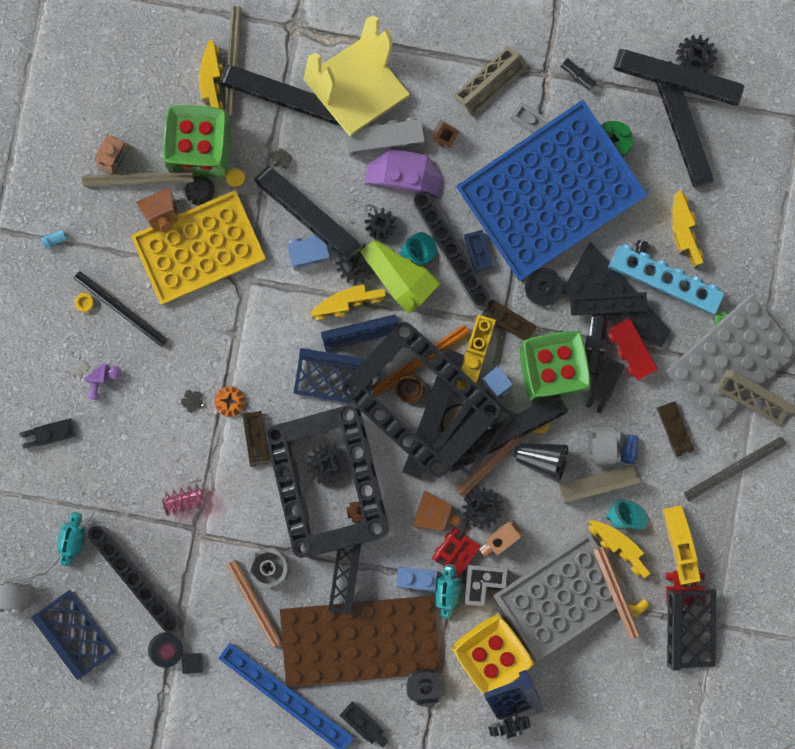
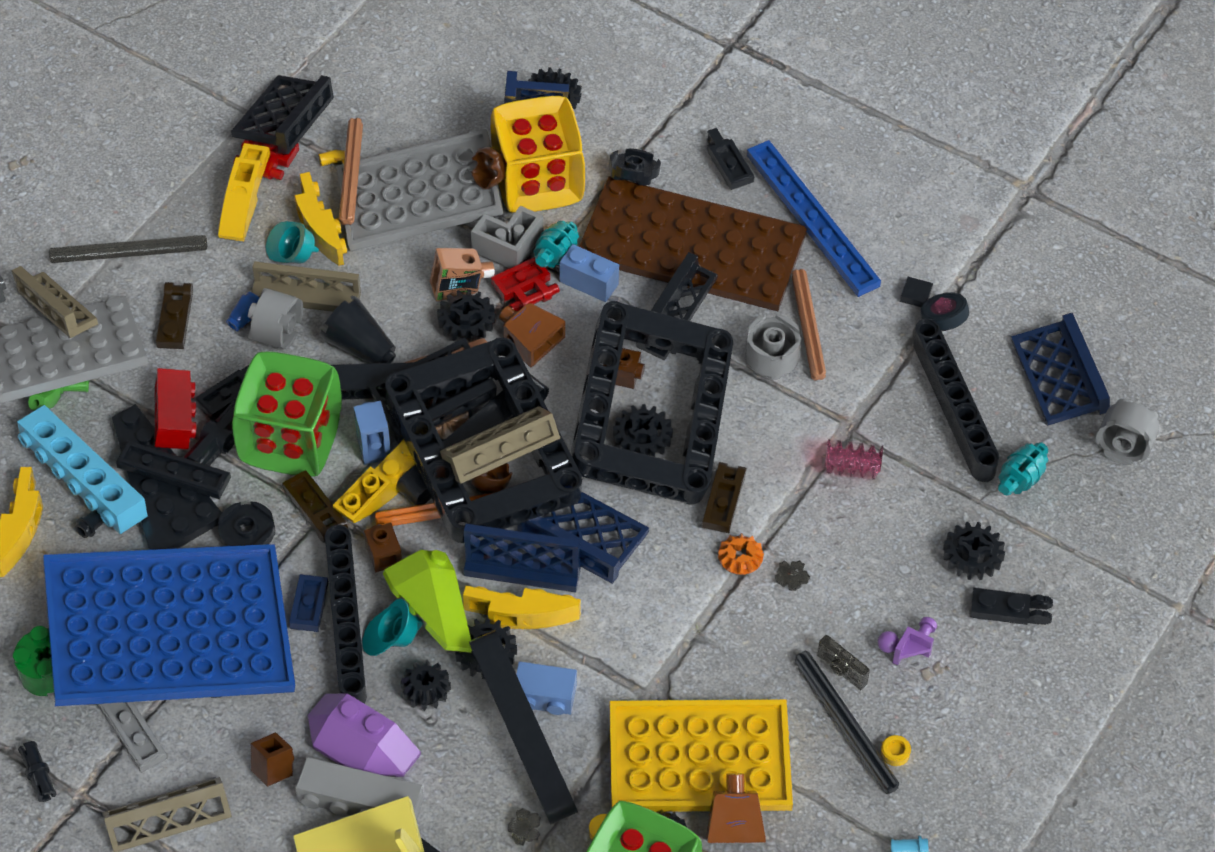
camera: 155 degrees left, 30 degrees down
(84, 471) = (974, 551): none -> black gear
(136, 345) = (843, 662): none -> clear smoke plate
(401, 387) = (501, 444): none -> dark tan fence
(452, 308) = (382, 546): none -> reddish brown brick
(516, 618) = (489, 168): none -> reddish brown hair

